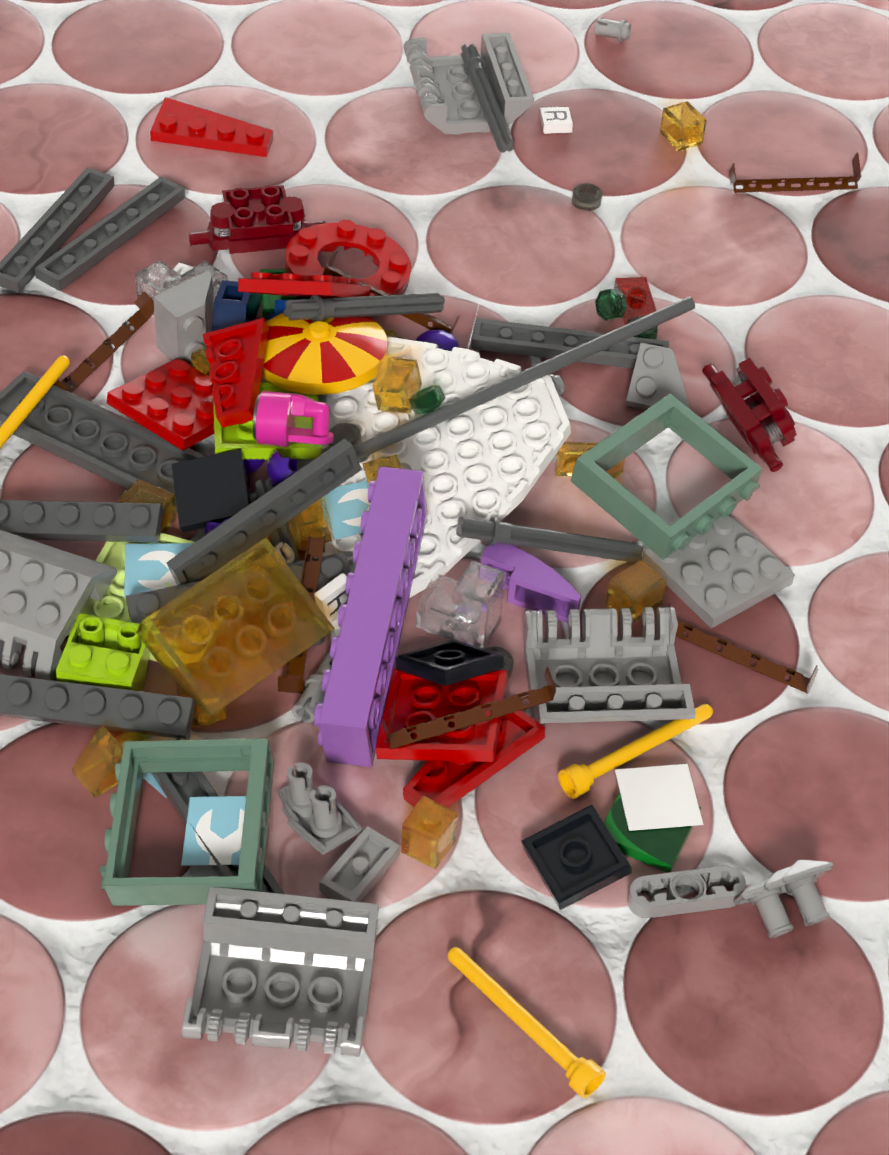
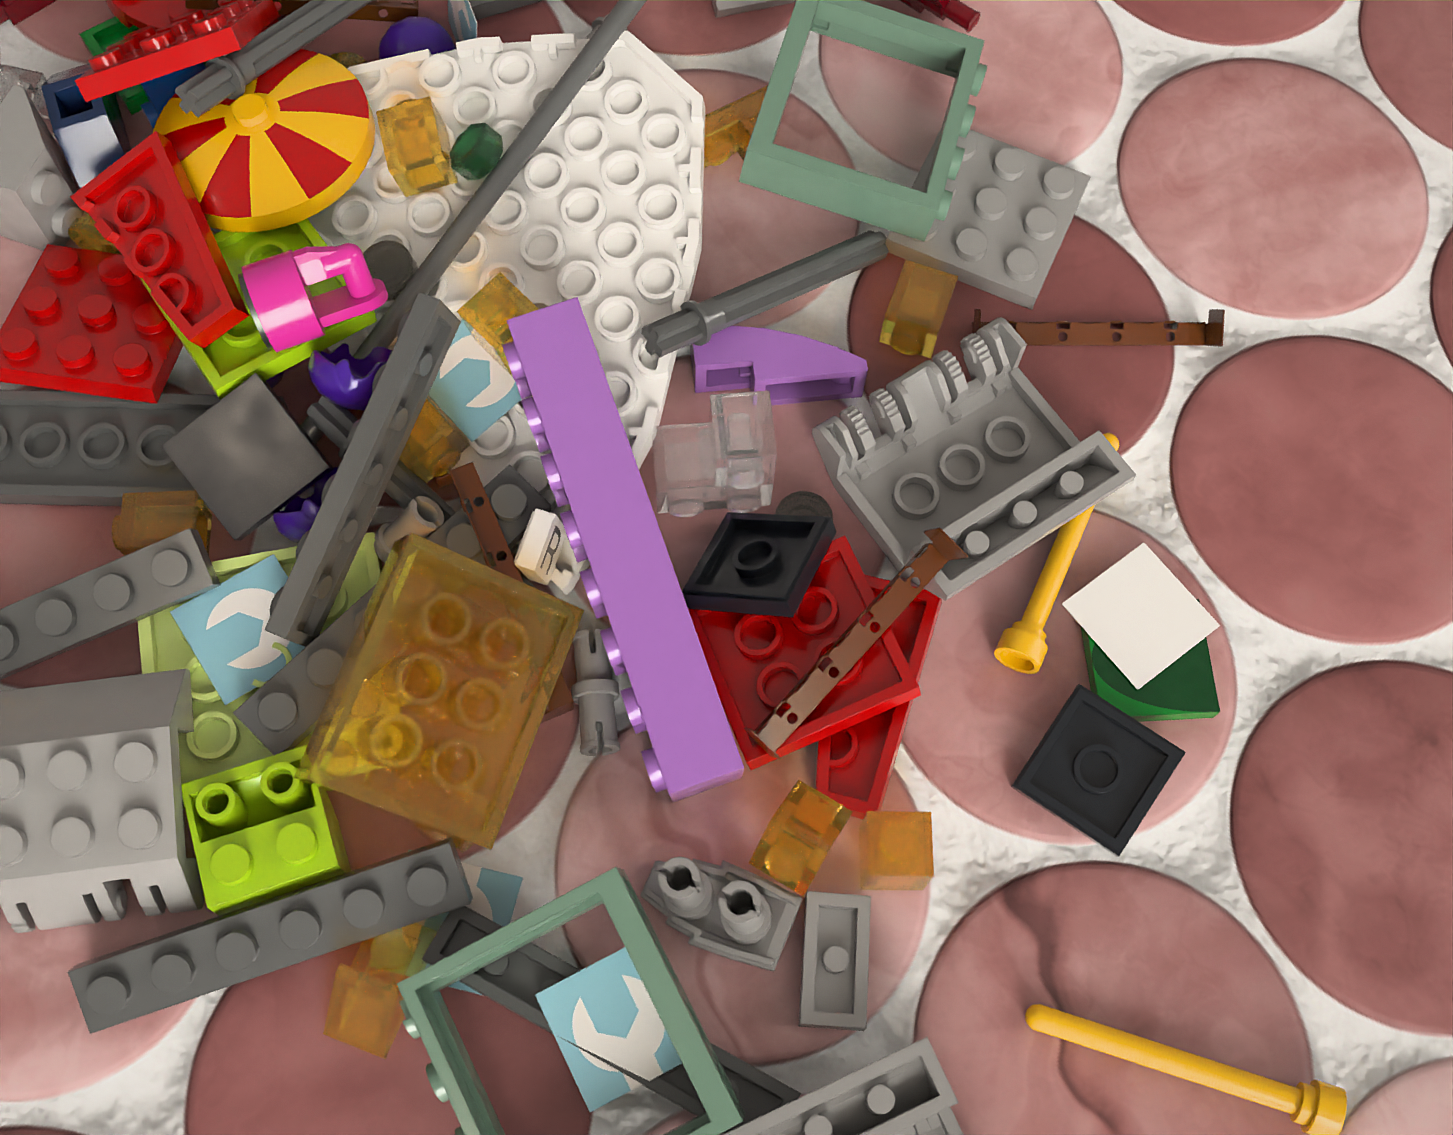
camera: 30 degrees left, 20 degrees up
(380, 797) = (800, 837): none -> clear yellow brick
(675, 904) = (1282, 732): light grey beam -> none
(799, 881) = (1376, 656): light grey connector -> none

